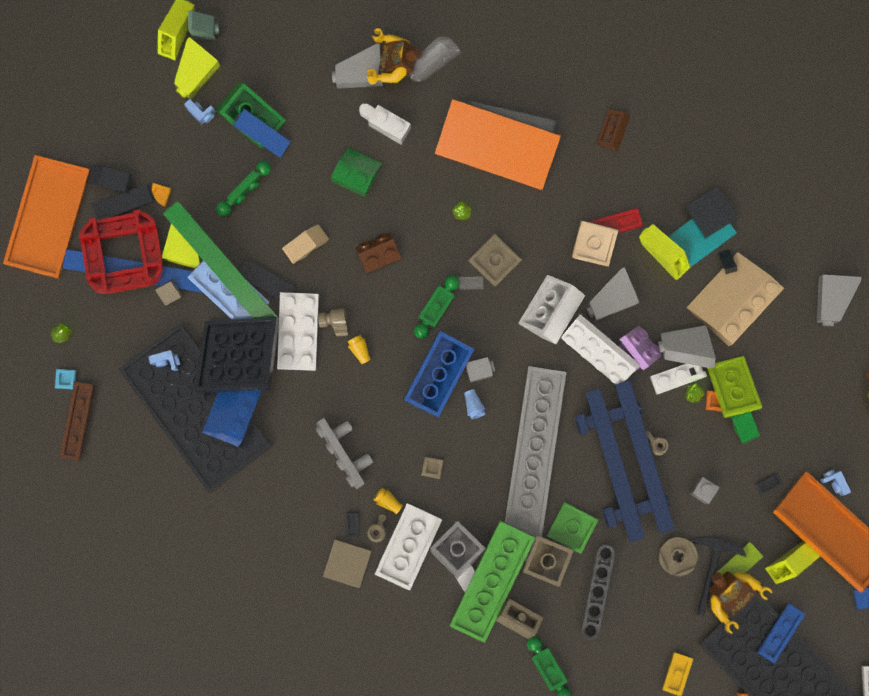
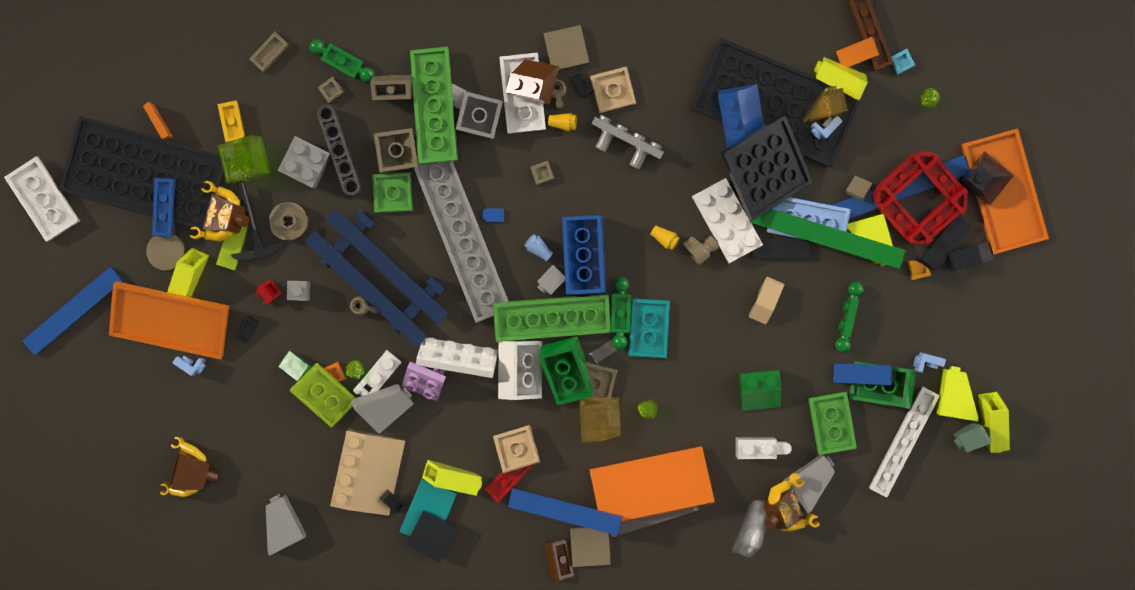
camera: 155 degrees right, 5 degrees up
(55, 236) = (986, 178): none -> black slope
(99, 408) = (858, 52): none -> orange tile
(126, 395) = (843, 77): none -> neon yellow slope
(153, 378) = (827, 105): none -> clear yellow slope
(261, 57) = (904, 441): none -> white plate
(312, 108) = (832, 423): none -> bright green plate
(328, 503) = (613, 90): none -> tan tile
(378, 252) = (699, 330): reddish brown bracket -> none
(393, 550) = (533, 81): none -> reddish brown slope
(419, 279) = (649, 328): none -> teal tile
(496, 456) = (493, 215): none -> blue piece
(498, 337) = (551, 317): none -> bright green plate
(508, 226) = (600, 419): none -> clear yellow slope
(512, 284) = (566, 370): none -> green slope
(573, 650) = (331, 90): none -> dark tan tile
(580, 125) = (589, 547): none -> dark tan tile
(584, 165) = (565, 511): none -> blue tile
(613, 298) = (472, 411): light grey slope -> none
(633, 598) = (305, 162): none -> light grey brick
(685, 633) = (244, 159): none -> clear neon green slope
(730, 505) = (268, 291): none -> red tile
(801, 593) = (165, 251): none -> dark tan tile

